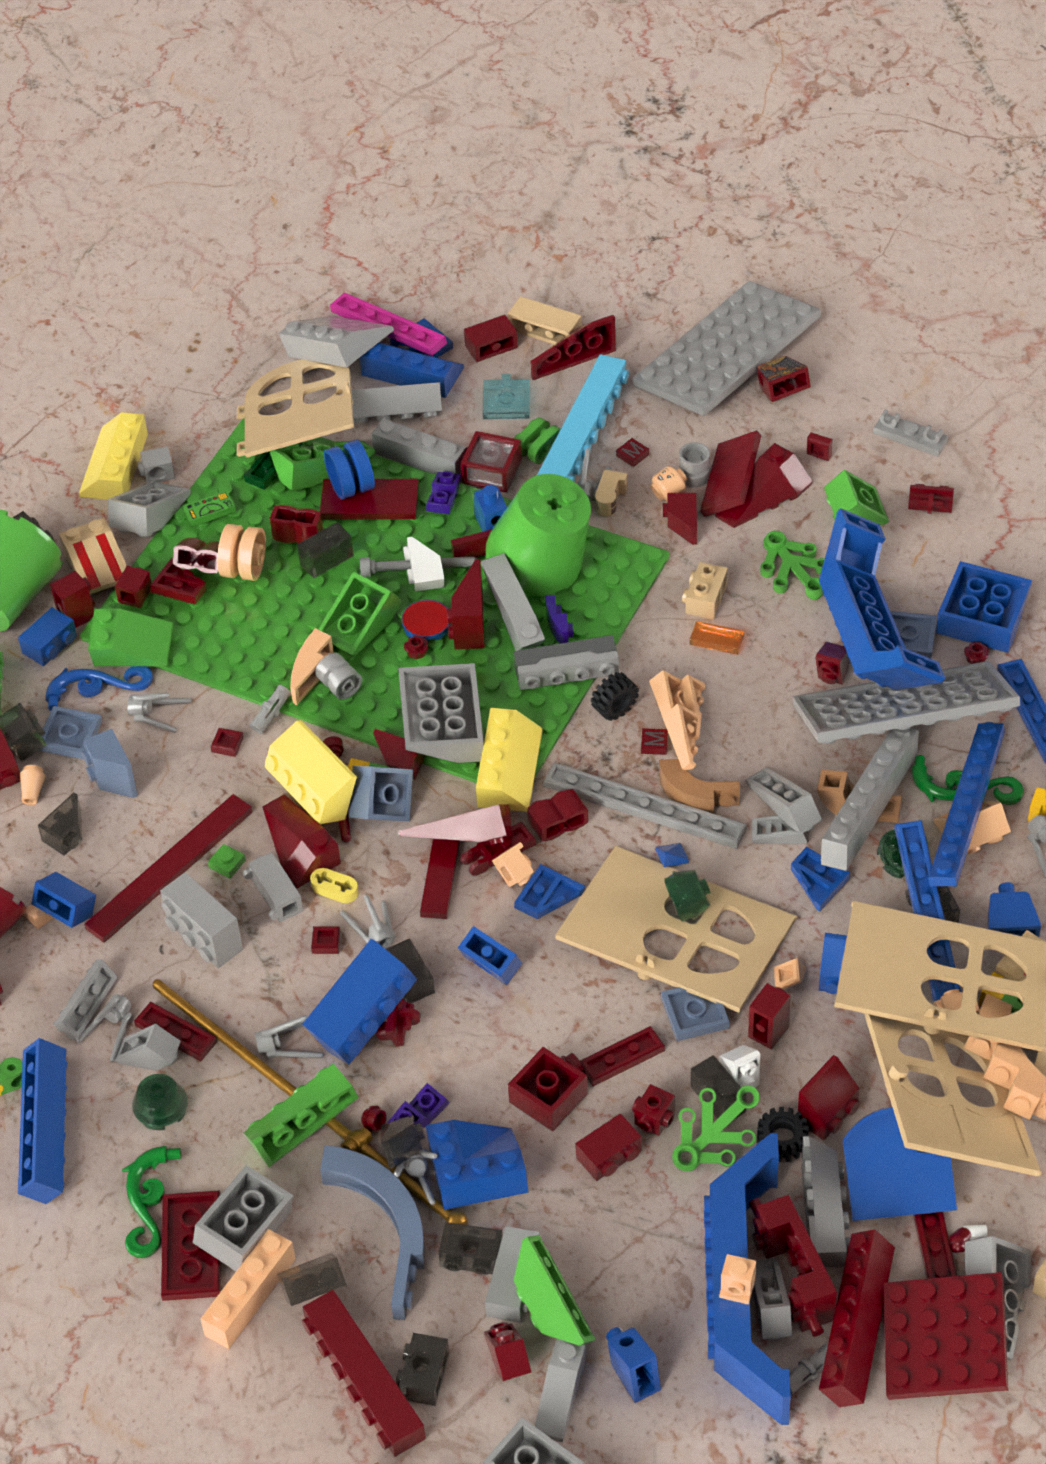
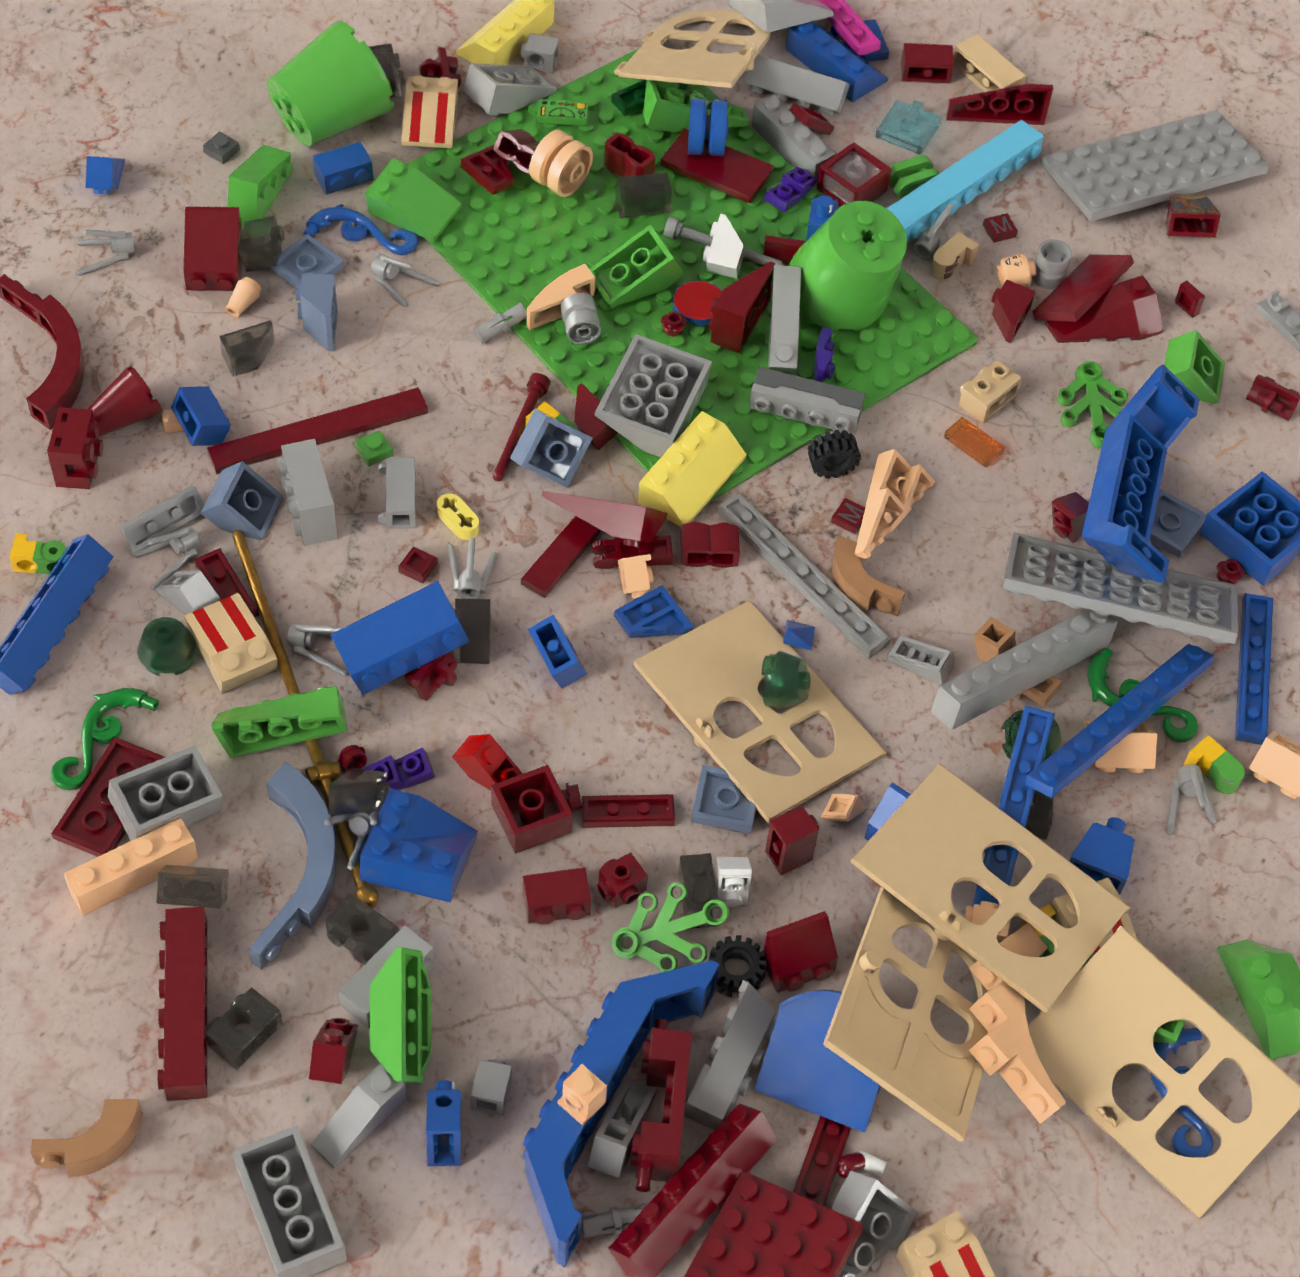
camera: 20 degrees right, 5 degrees up
(73, 598) = (383, 140): dark red brick -> none
(77, 513) = (440, 67): none -> dark red hips
(133, 586) = (445, 154): dark red brick -> none
(145, 954) = (242, 502): none -> sand blue slope
(214, 1071) = (231, 642): none -> tan slope
(227, 742) = (445, 336): dark red tile -> none
(299, 840) = (450, 459): dark red wedge -> none
(311, 773) = (495, 400): light yellow slope -> none
(425, 425) = (812, 118): none -> dark red tile
(486, 1070) = (485, 760): none -> red slope
(650, 1316) = (491, 1086): none -> light grey brick
(786, 799) = (940, 631): light grey slope -> none
(816, 879) = (925, 729): blue wing -> none

